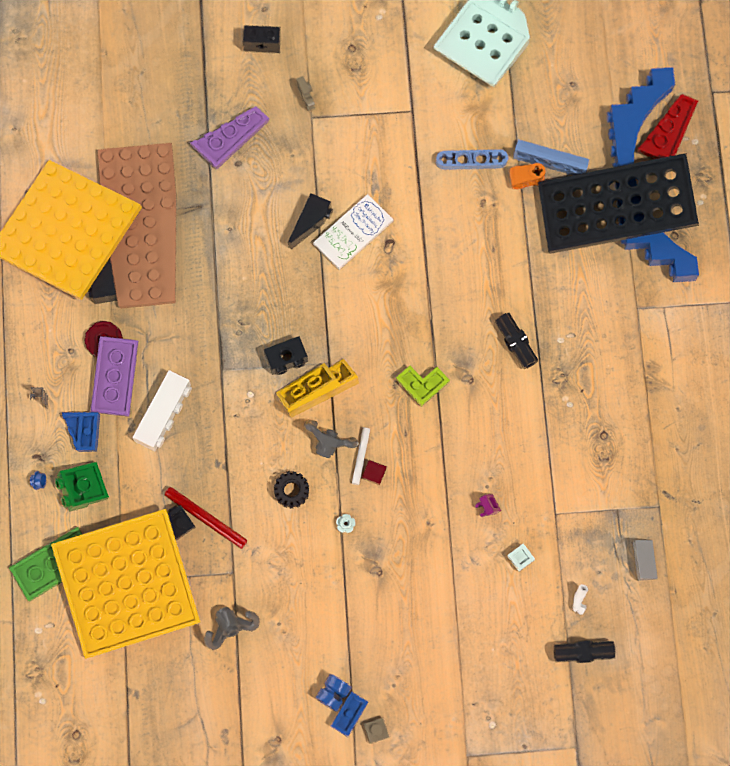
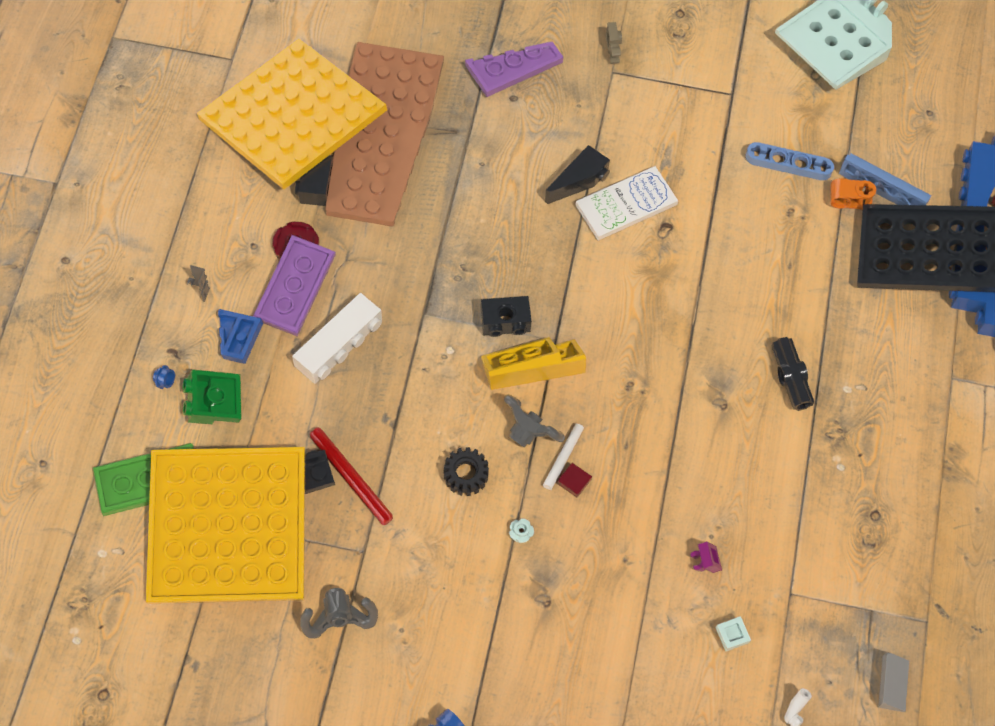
camera: 15 degrees right, 10 degrees down
(422, 388) = (662, 398): lime plate -> none

